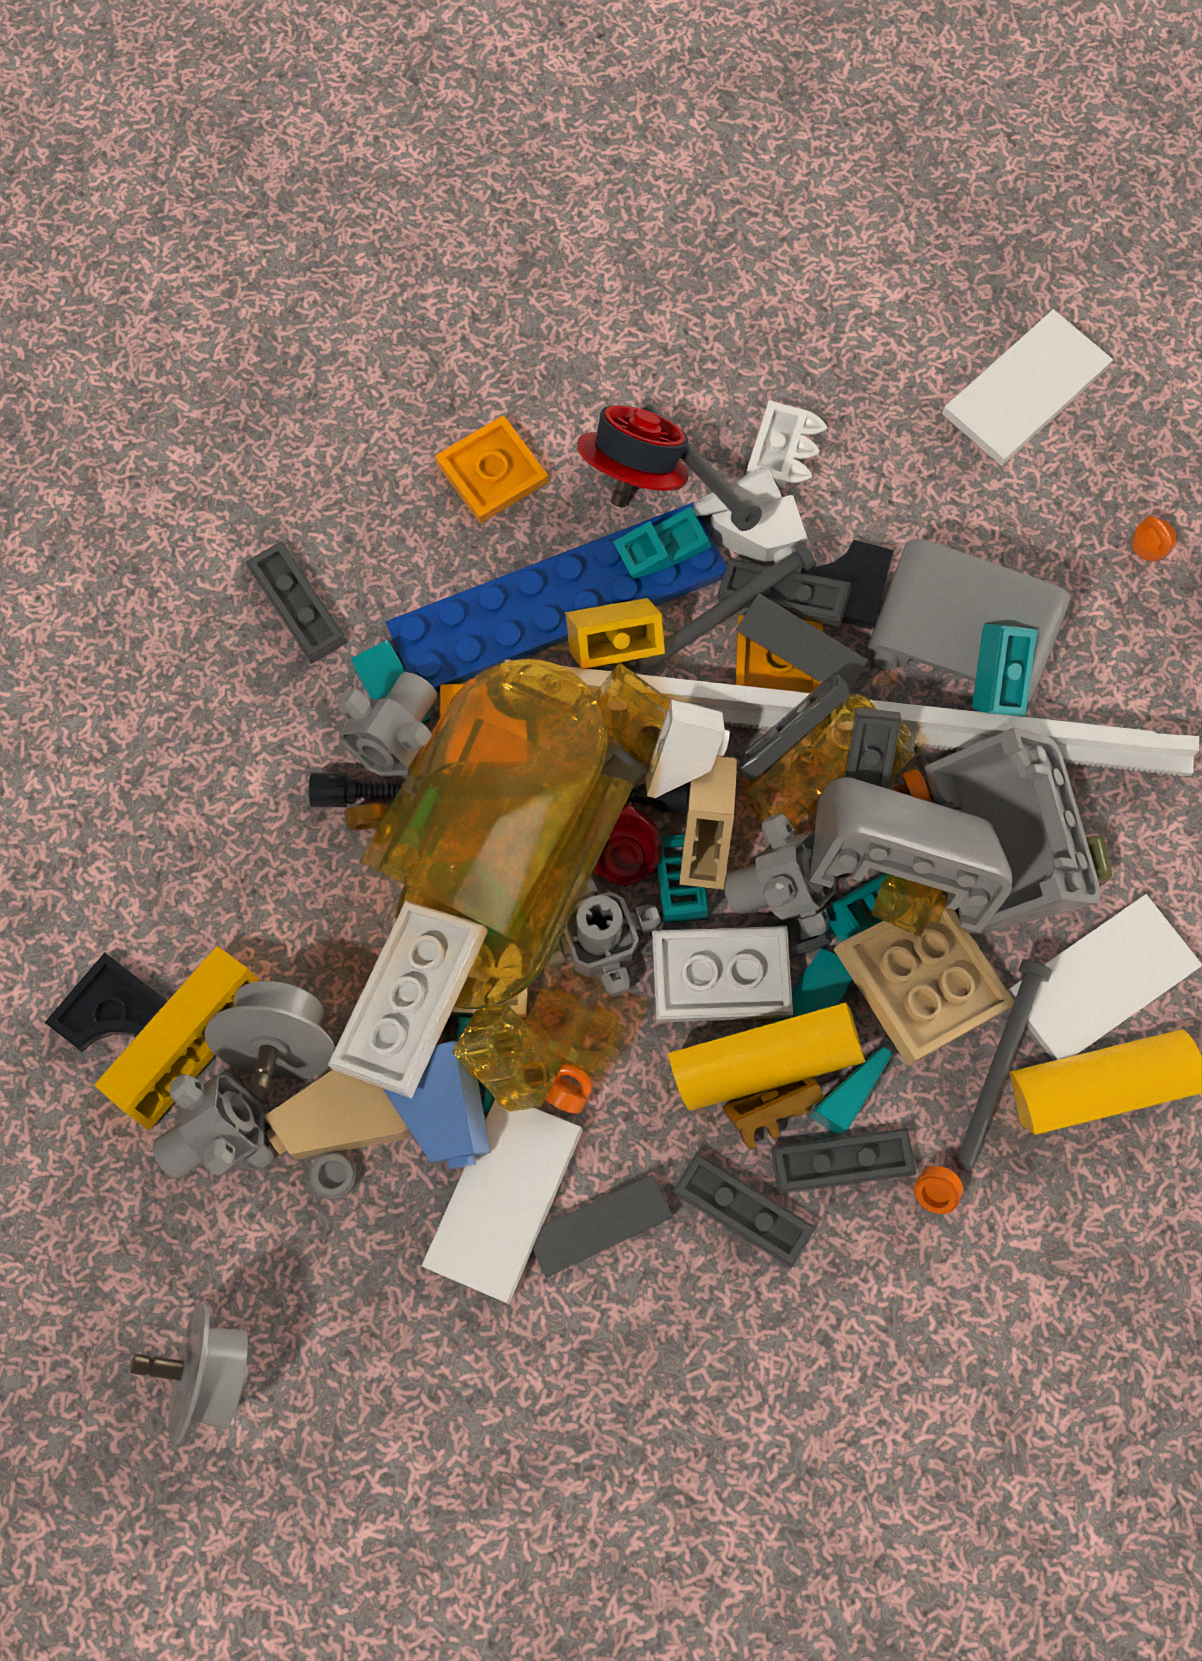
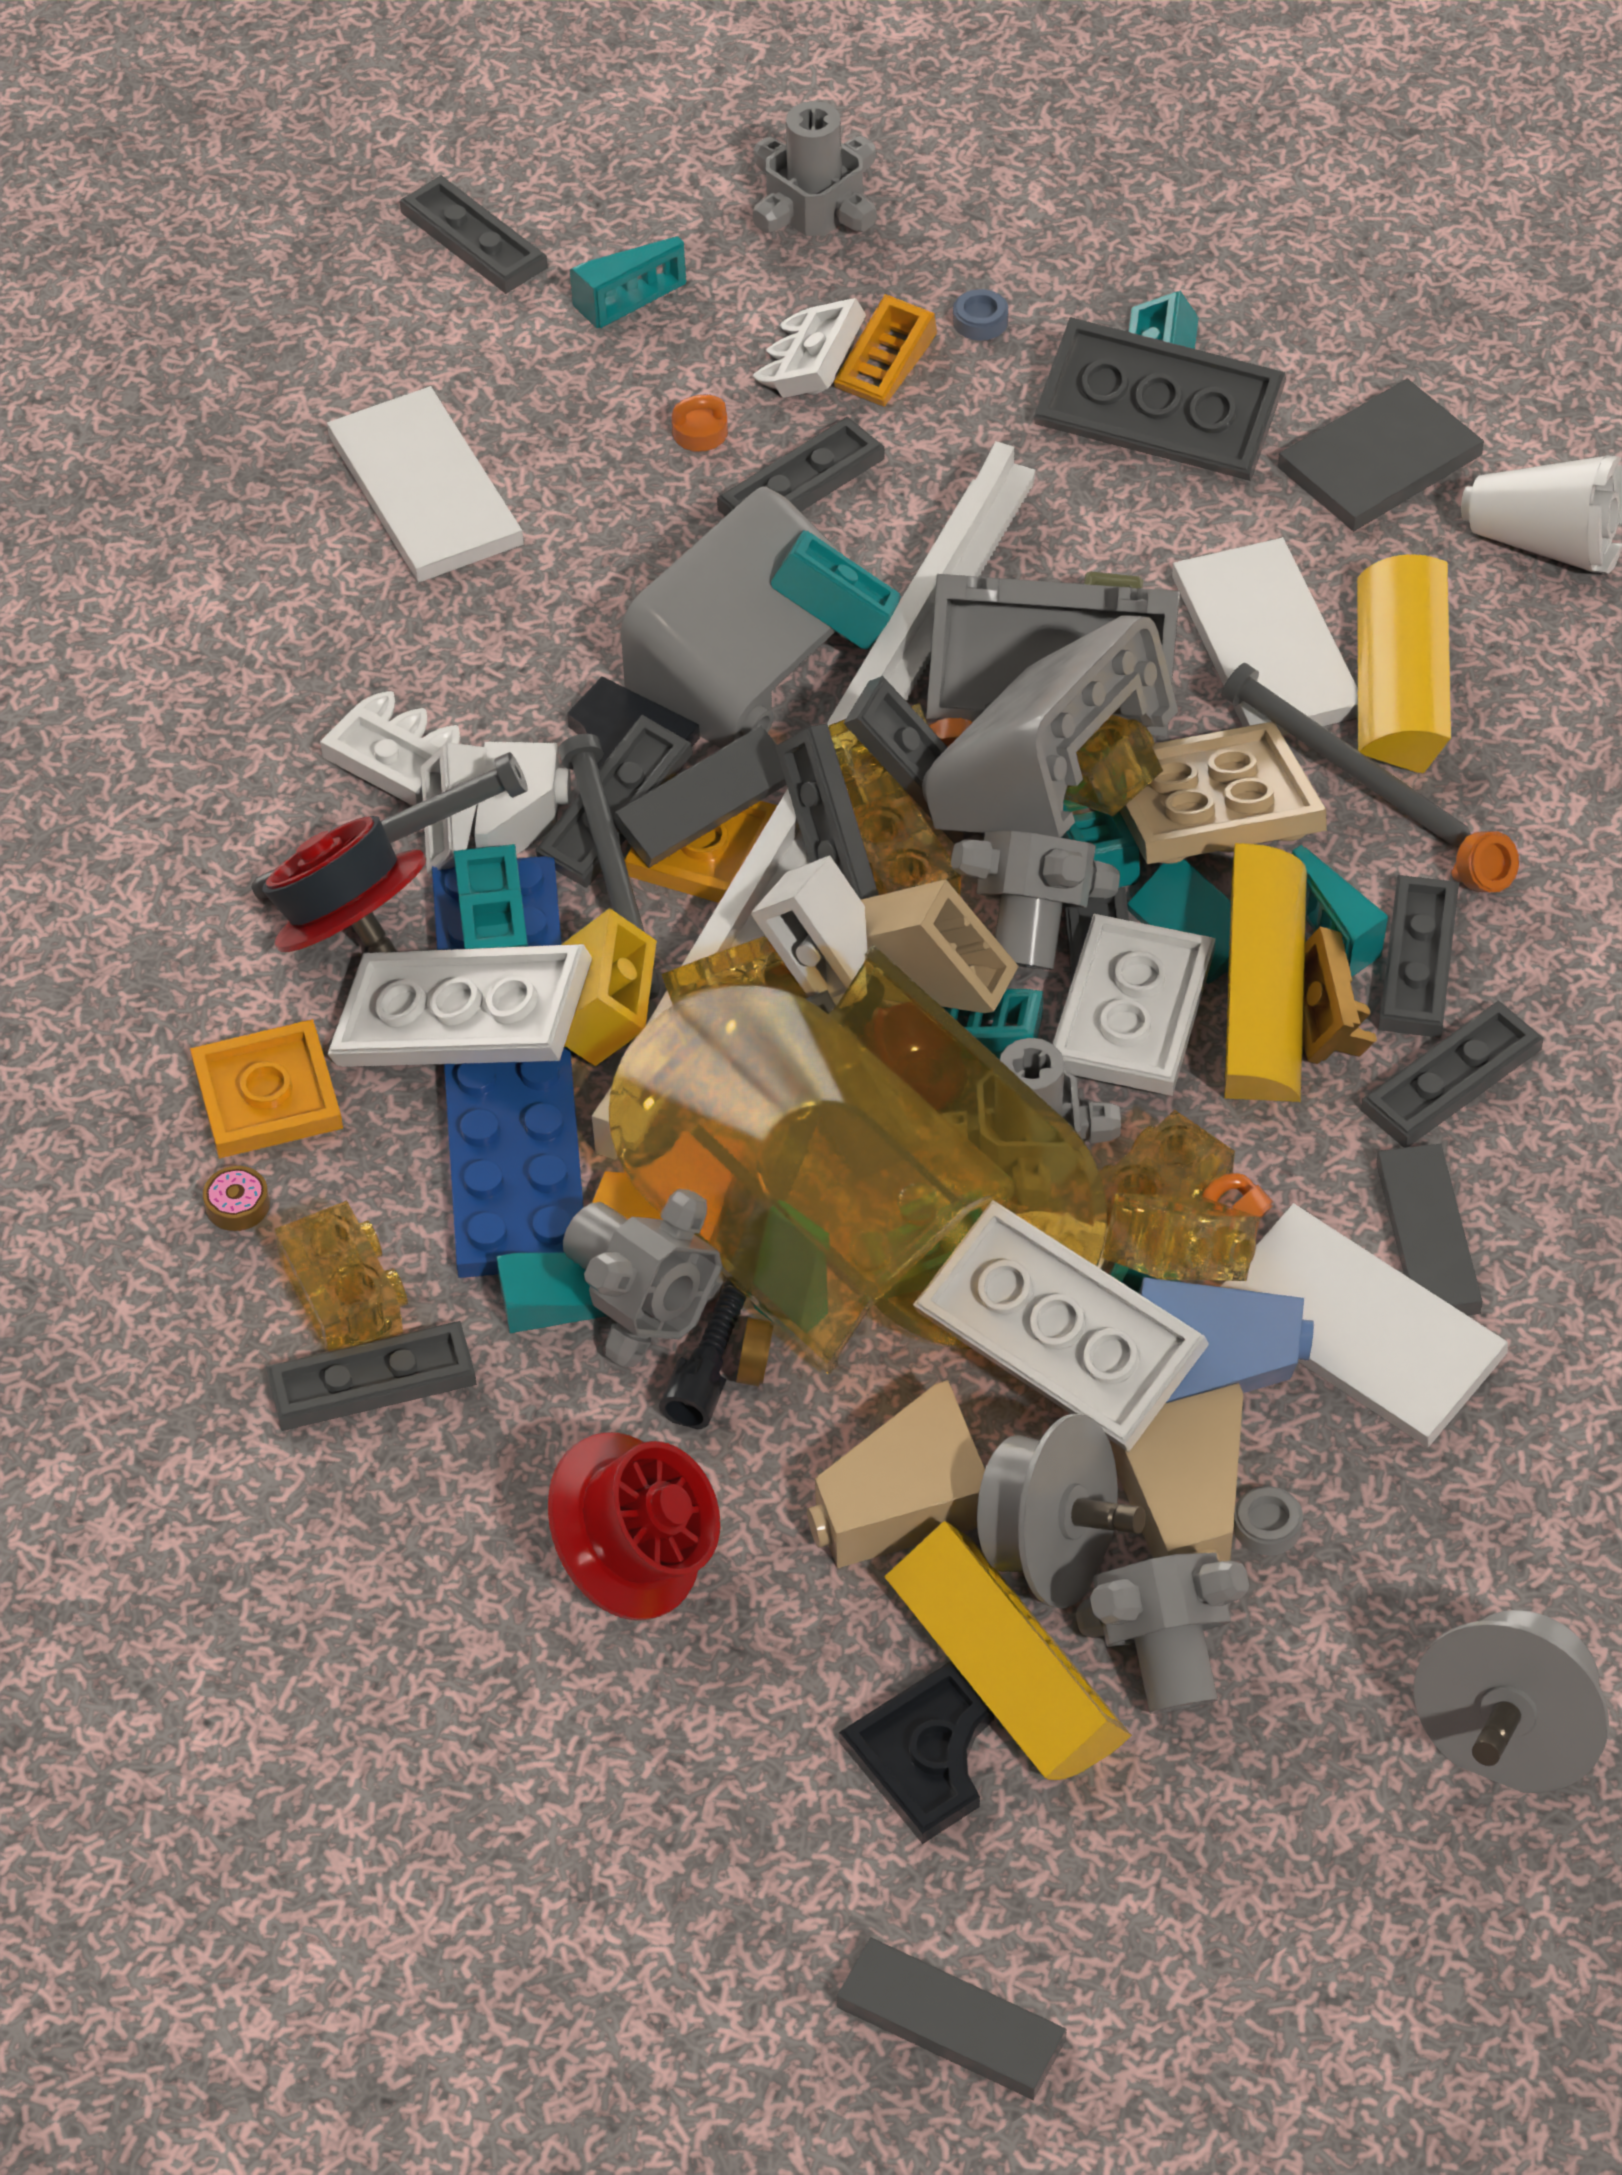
camera: 70 degrees left, 20 degrees down
(199, 778) = (632, 1523): none -> red piece
(290, 936) = (900, 1482): none -> tan slope
(342, 552) = (333, 1283): none -> clear yellow brick
(403, 481) = (236, 1198): none -> tile
(571, 555) = (461, 1006): none -> white tile
(1131, 621) = (813, 467): none -> dark grey tile

